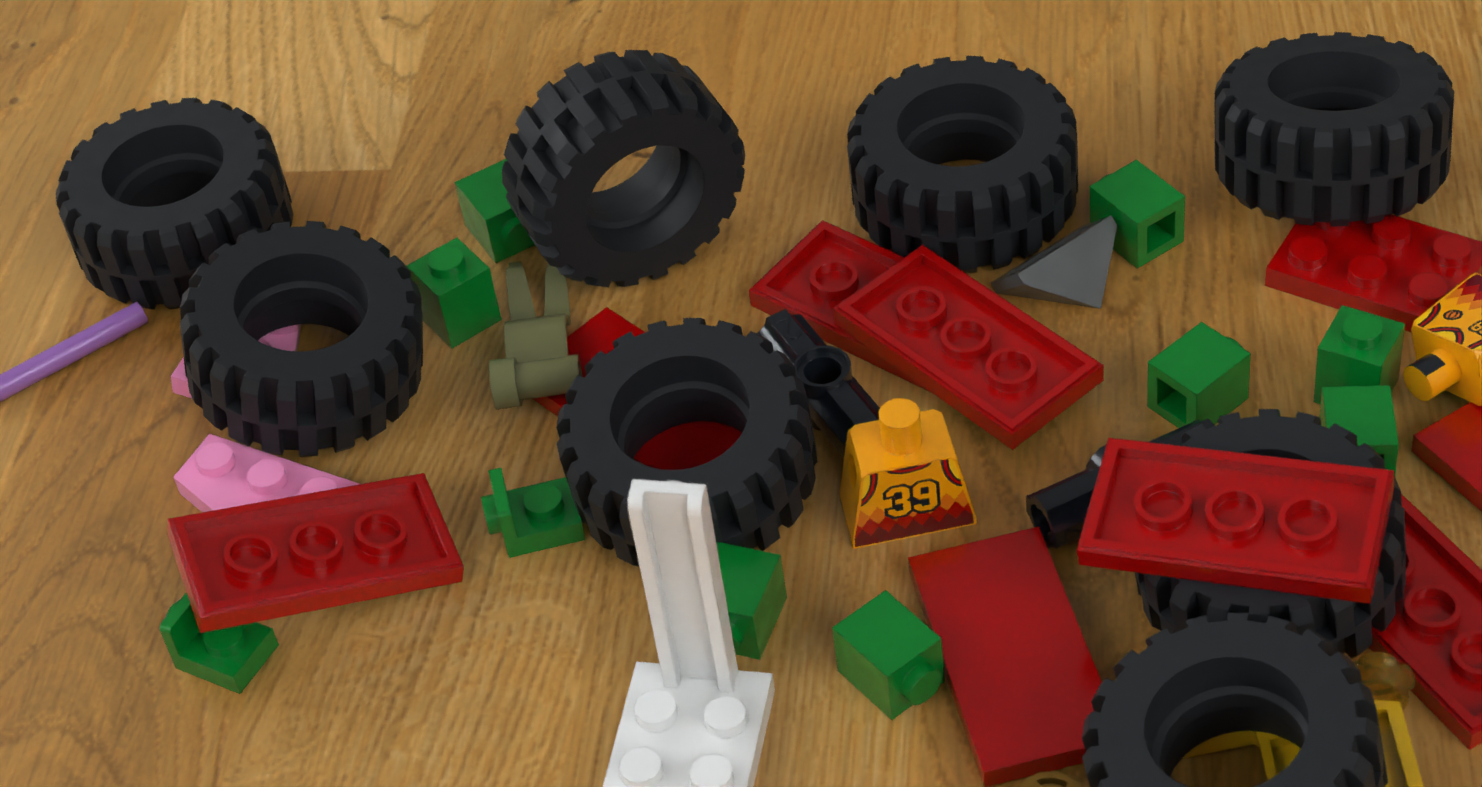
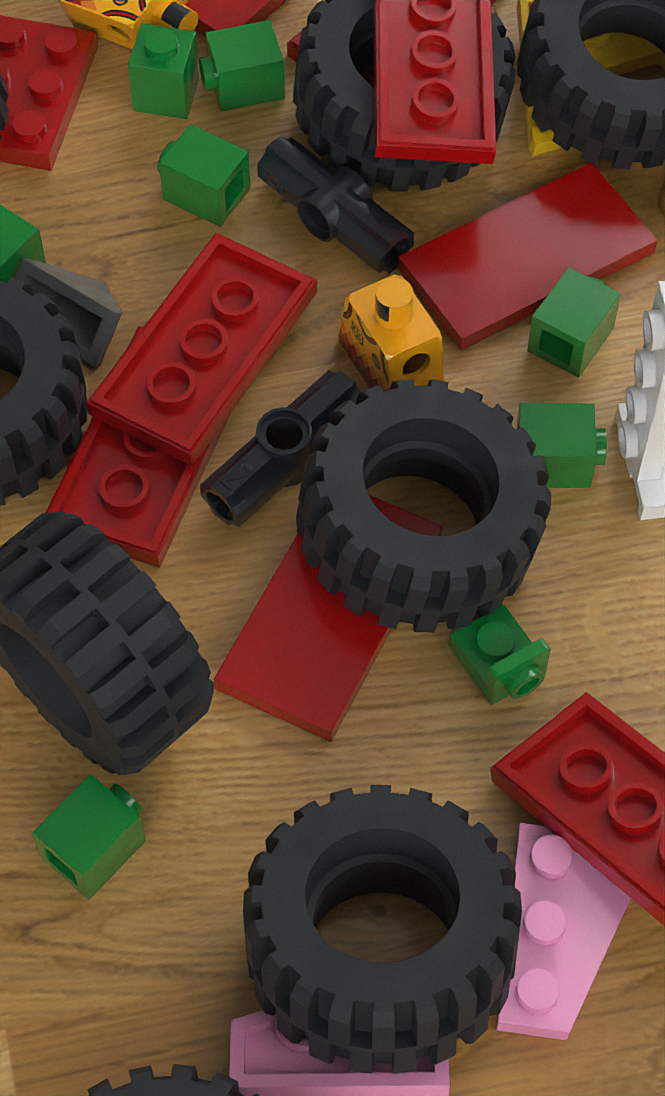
camera: 115 degrees left, 15 degrees up
(455, 292) = (233, 827): green brick -> none
(534, 346) = (274, 723): olive flag -> none

